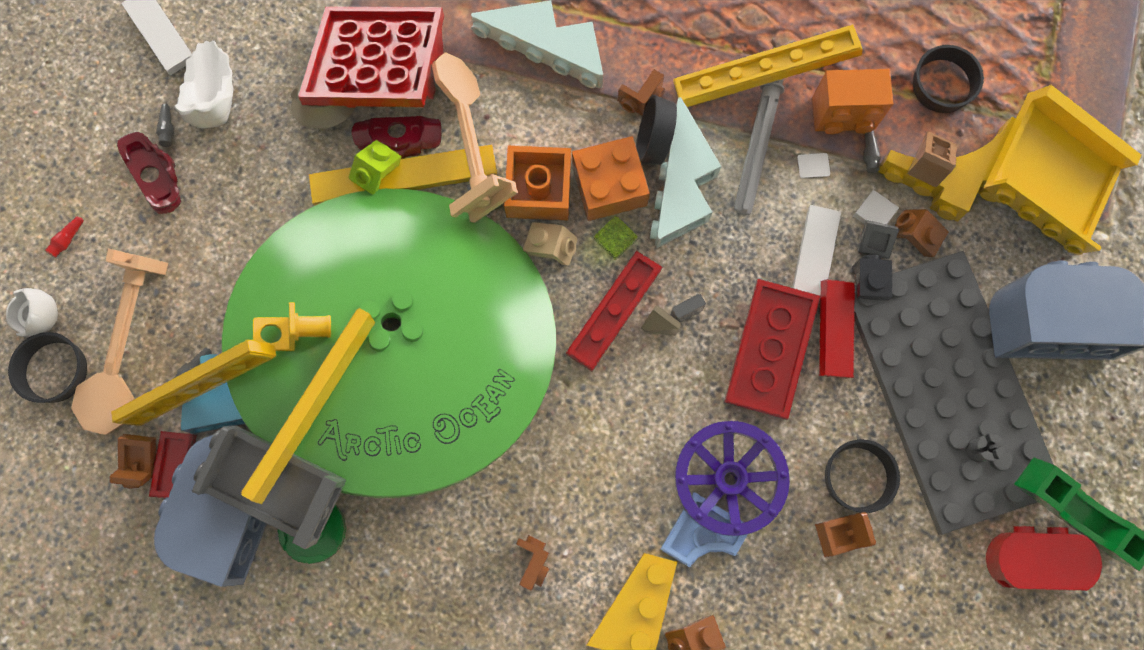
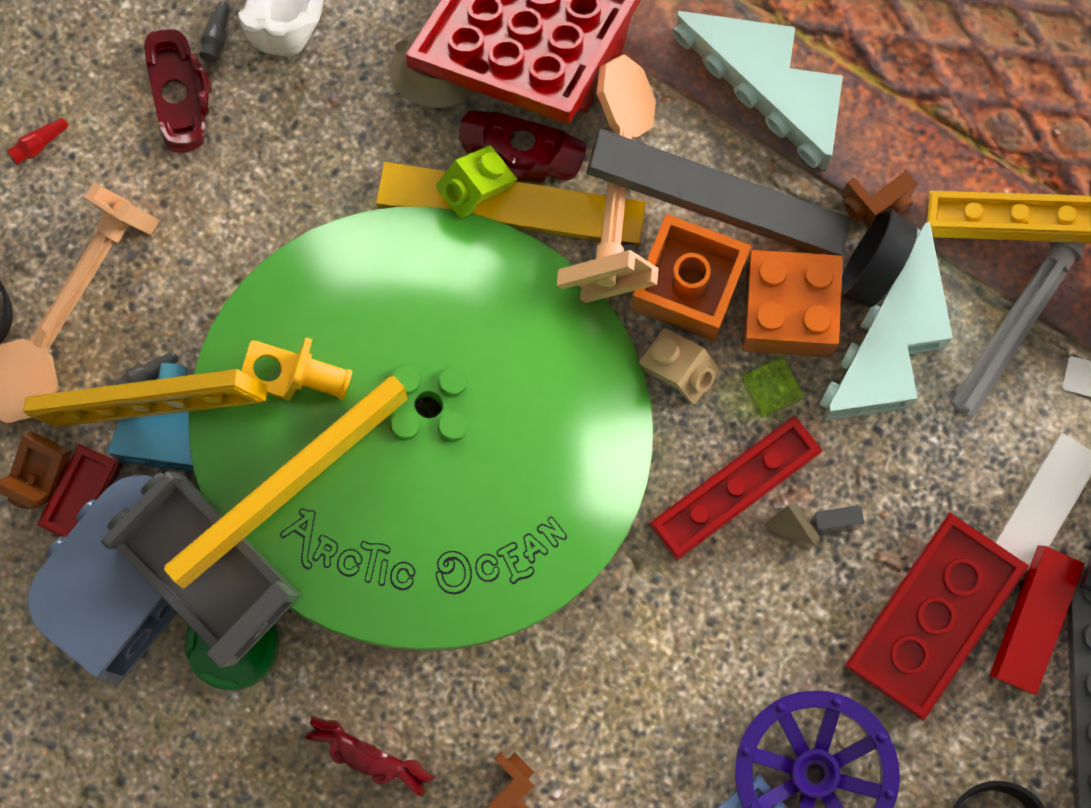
camera: 25 degrees right, 0 degrees up
(430, 574) = (366, 757): none -> dark red piece
(535, 123) = (717, 194): none -> dark grey tile

